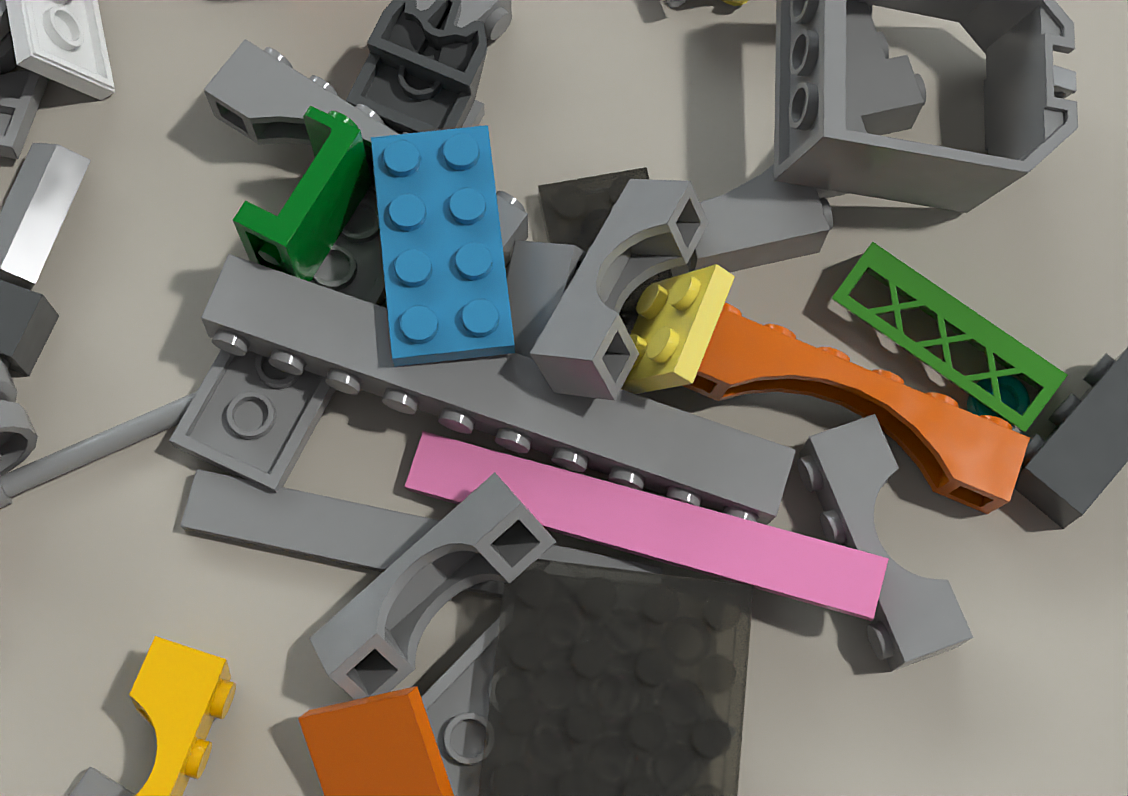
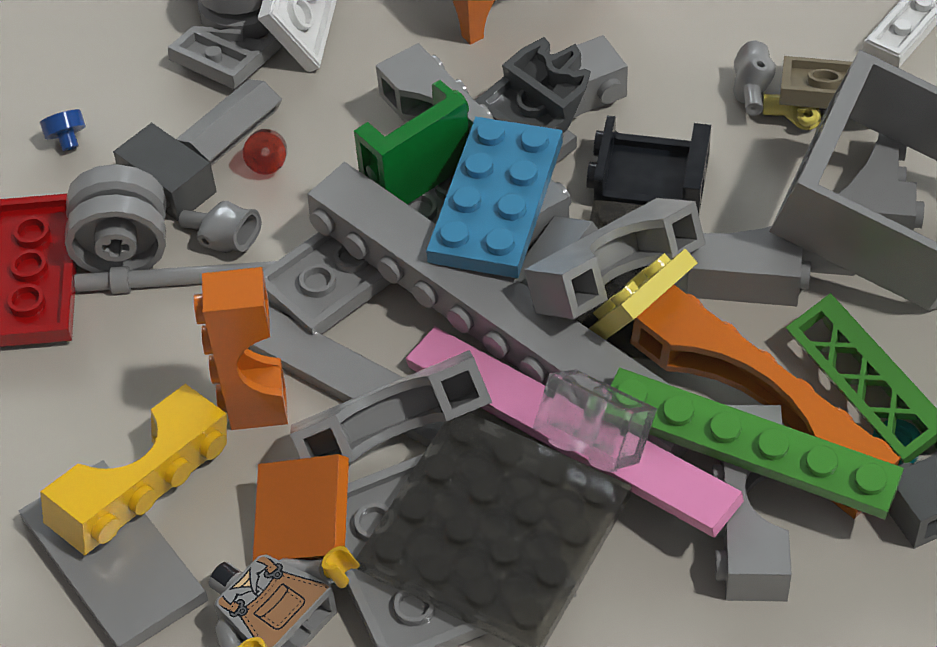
camera: 30 degrees right, 20 degrees down
(96, 373) = (224, 227): none -> light grey piece
(102, 245) = (258, 158): none -> clear red tile
(218, 585) = (236, 317): none -> orange arch
(589, 121) = (648, 167): none -> black panel
(690, 528) = (594, 420): none -> clear brick
(867, 483) = (766, 446): none -> bright green plate

